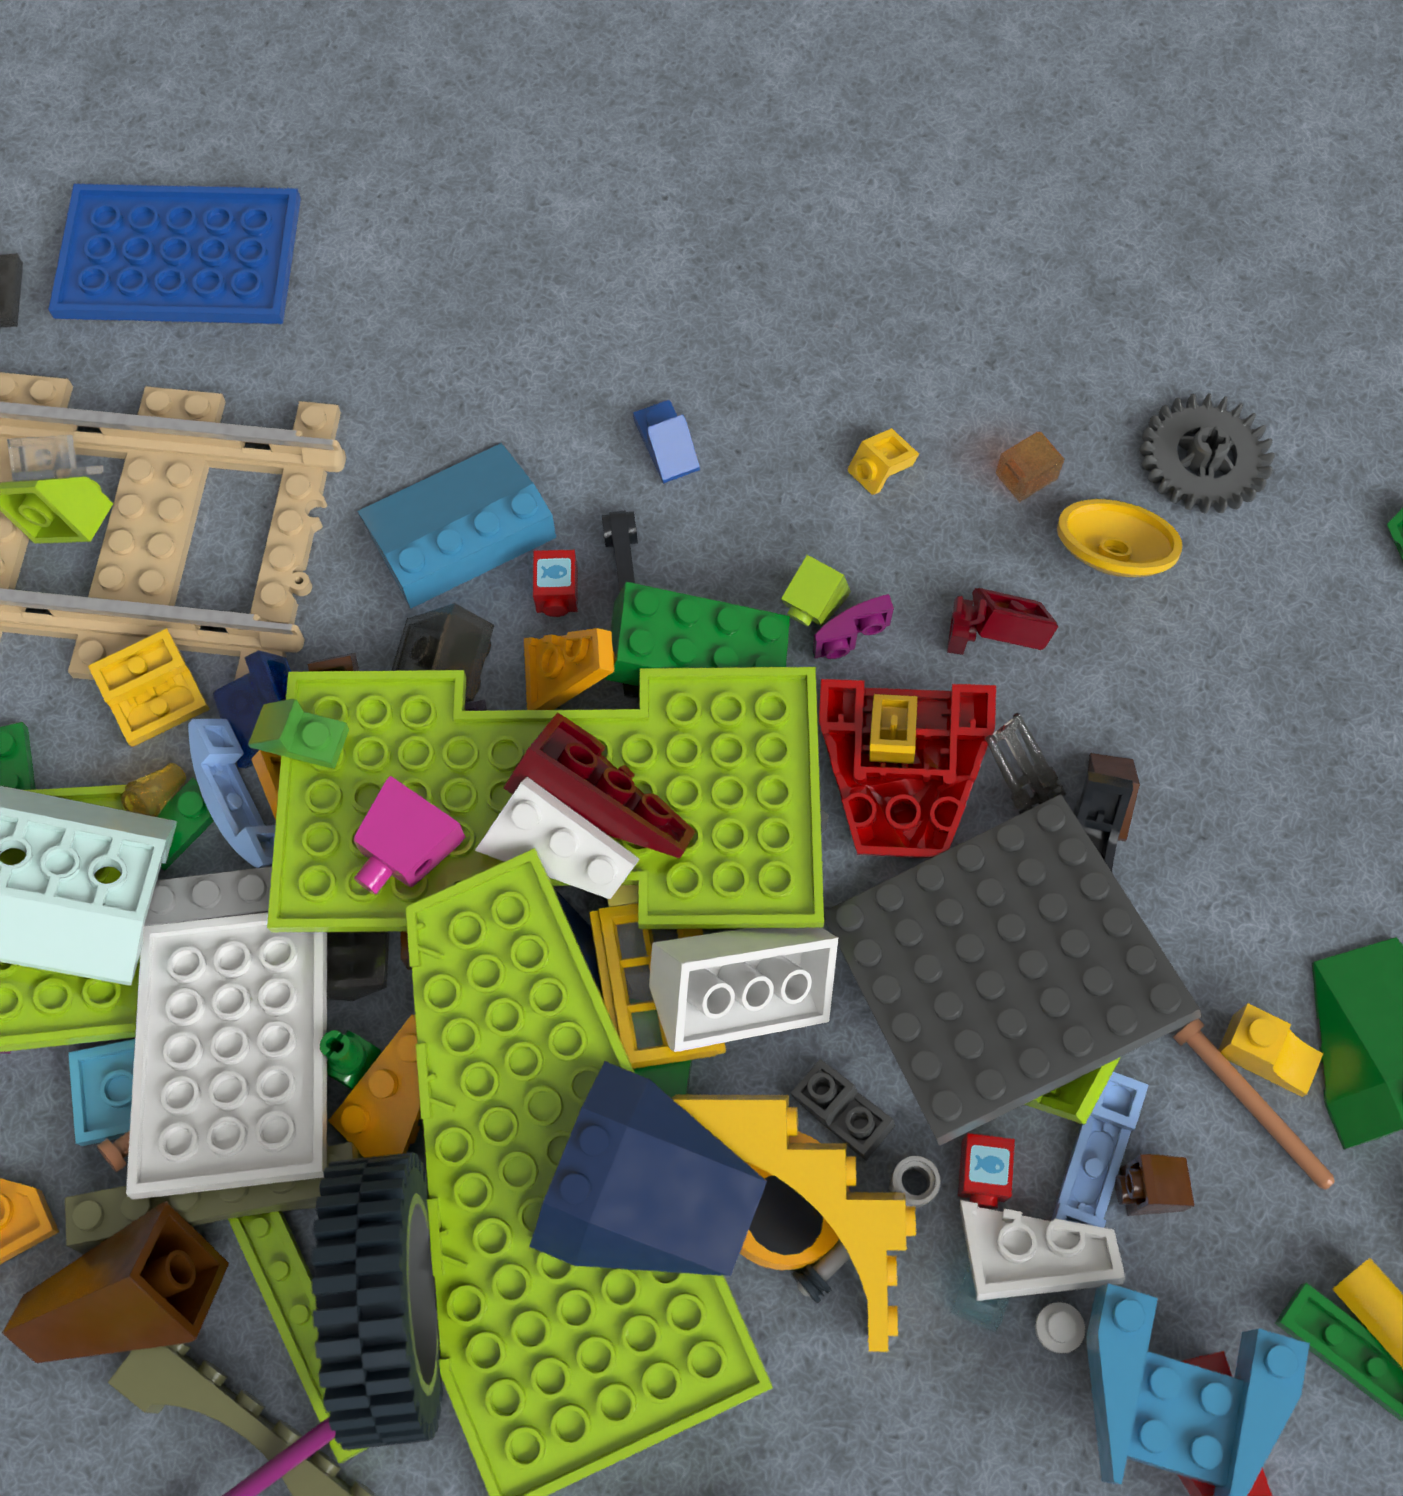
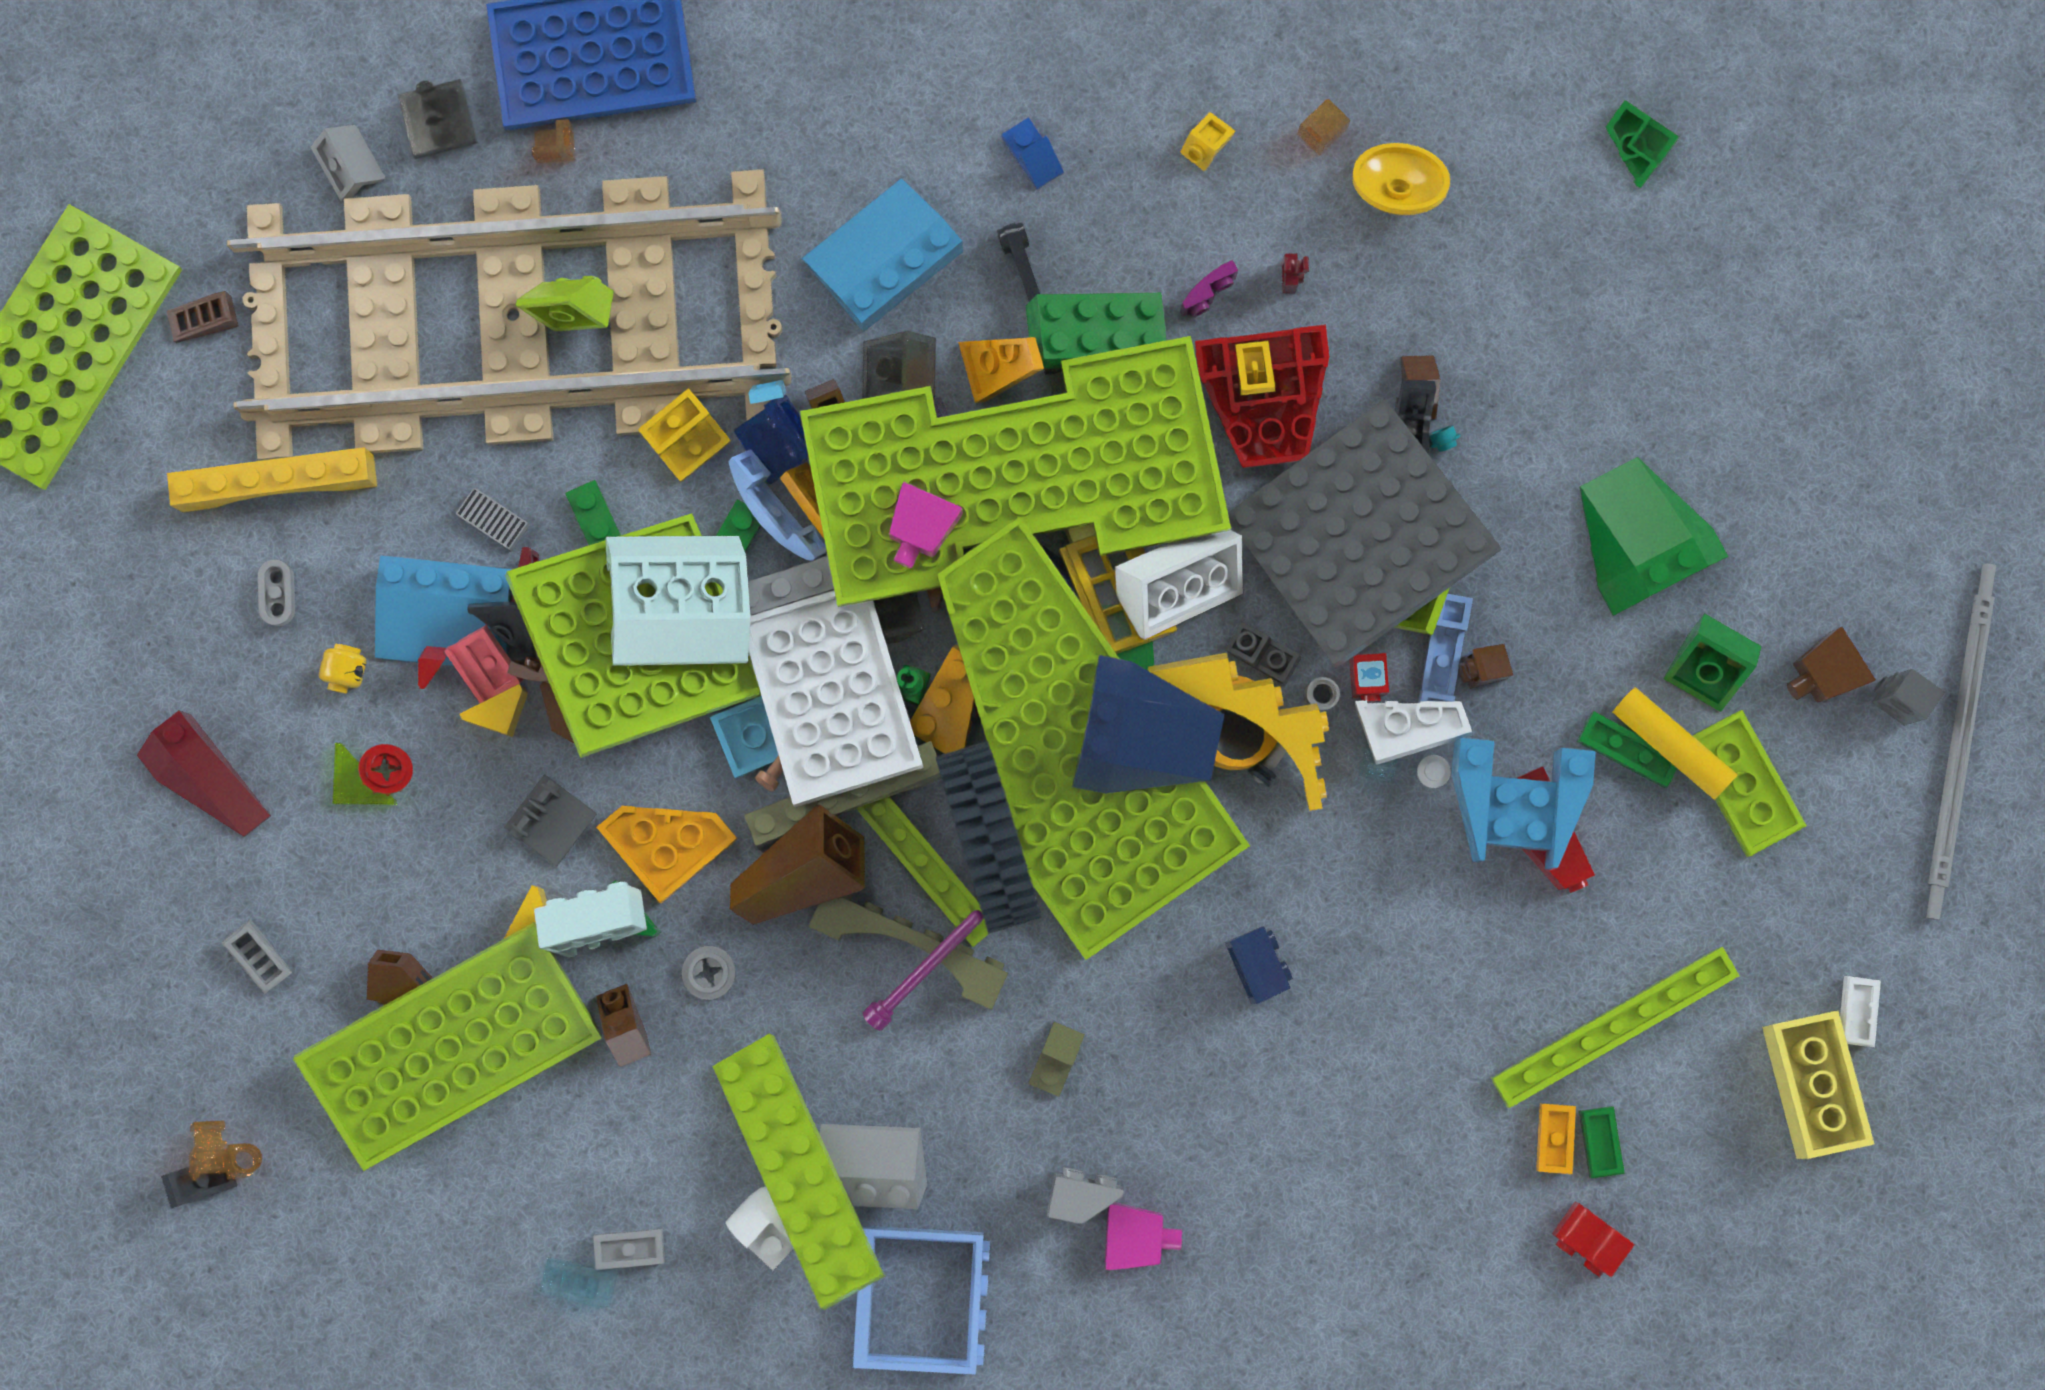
camera: 15 degrees left, 15 degrees up
(46, 458) = (552, 269): clear panel -> none
(105, 341) = (555, 144): none -> clear orange panel
(153, 791) = (713, 515): clear yellow cone -> none
(248, 642) = (767, 391): none -> medium azure tile
(299, 735) = (822, 459): bright green slope -> none
(555, 582) = (973, 293): red brick -> none
(565, 841) = (1038, 505): white wing -> none
(573, 770) = (1039, 462): dark red wedge -> none
(815, 592) = (1176, 271): lime slope -> none
(1014, 619) = (1330, 260): dark red slope -> none
(1041, 768) = (1367, 378): clear smoke piece -> none
(1134, 865) = (1444, 438): none -> teal plate
(1215, 435) = (1468, 68): dark grey gear -> none
(1254, 1103) = (1548, 596): nougat bar -> none
(1270, 1049) = (1555, 556): yellow arch -> none

